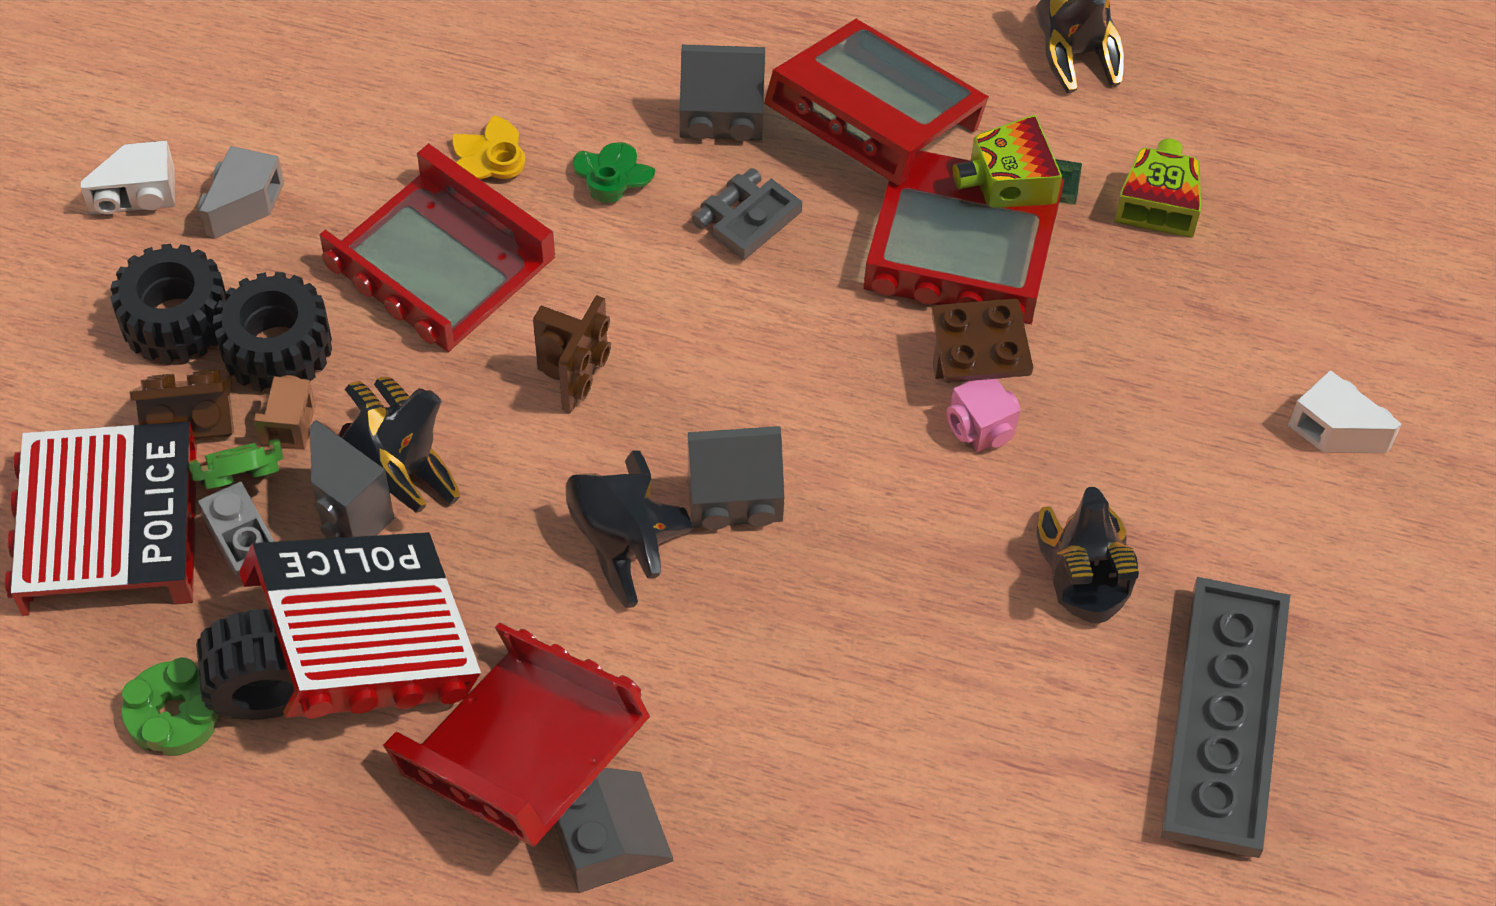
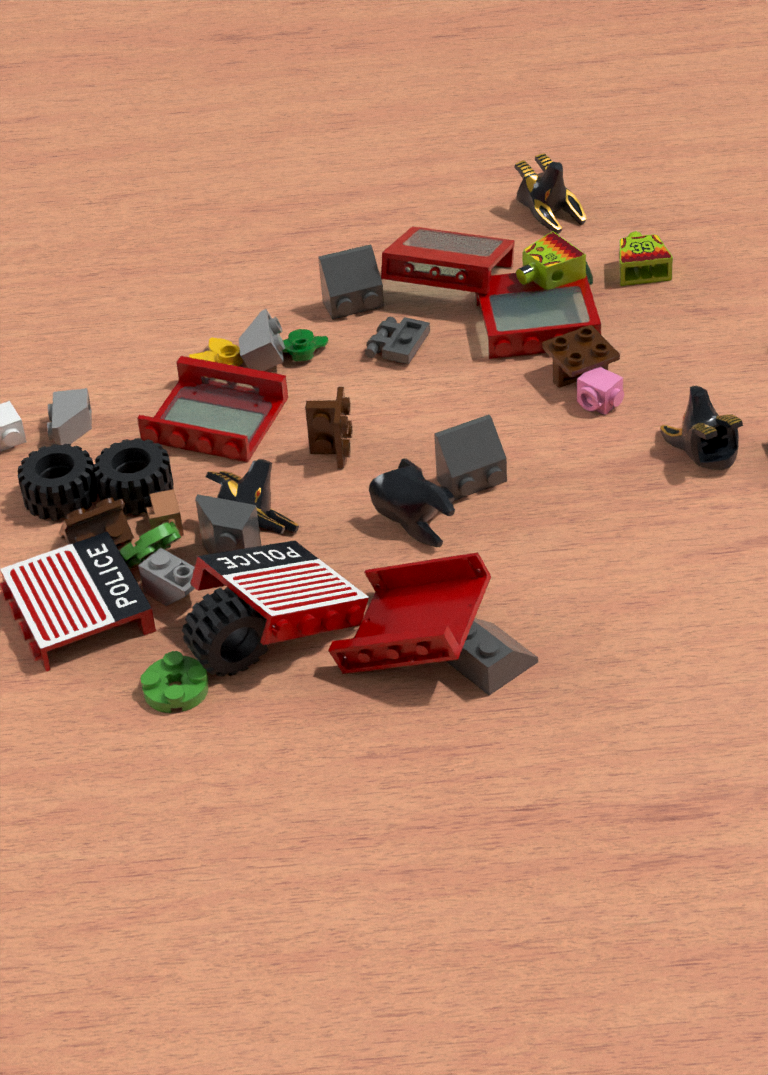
camera: 15 degrees left, 15 degrees down
(552, 156) = (261, 343): none -> light grey slope

